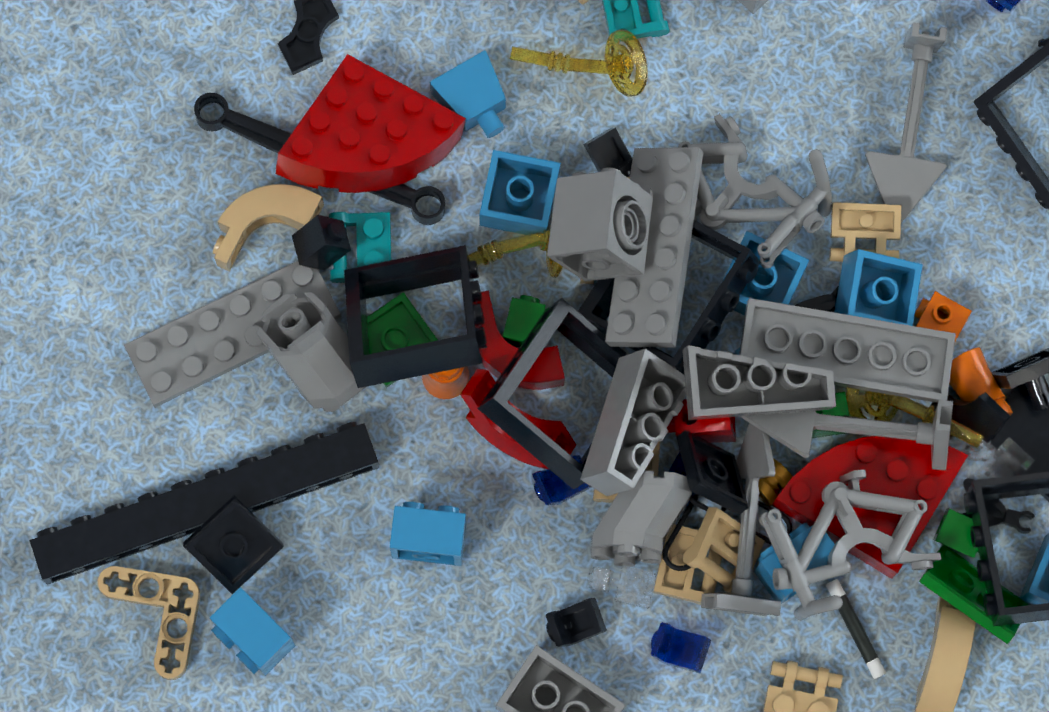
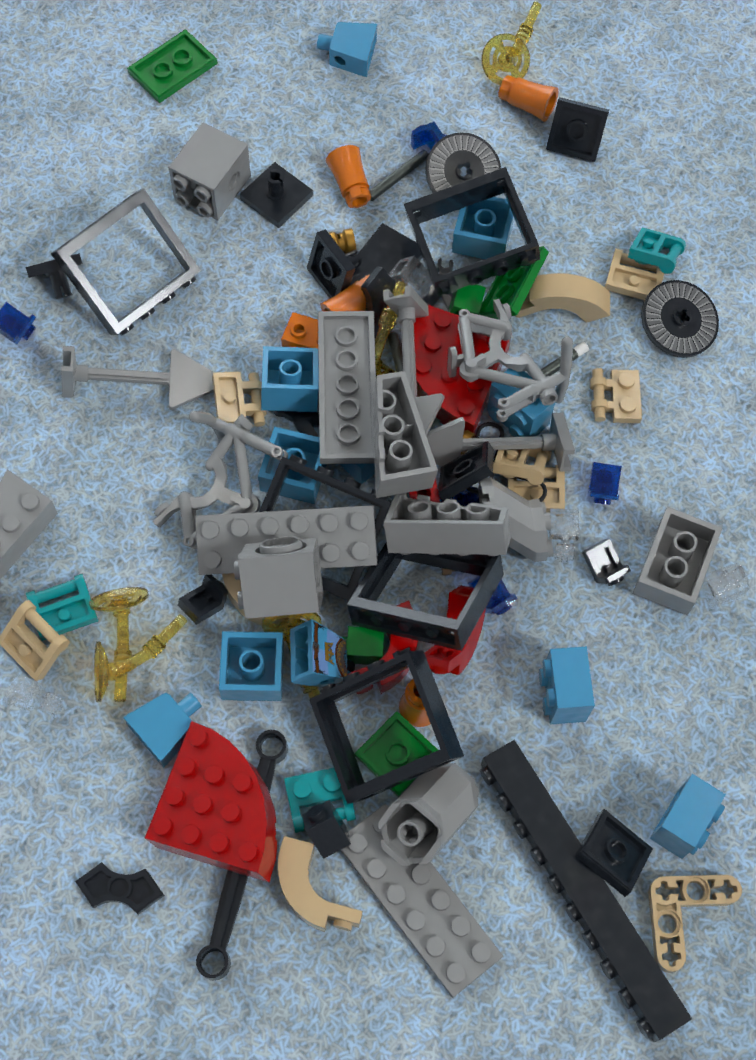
camera: 100 degrees left, 10 degrees down
(510, 262) = (318, 655): none -> dark azure torso
(541, 39) = (108, 671): none -> clear yellow dish

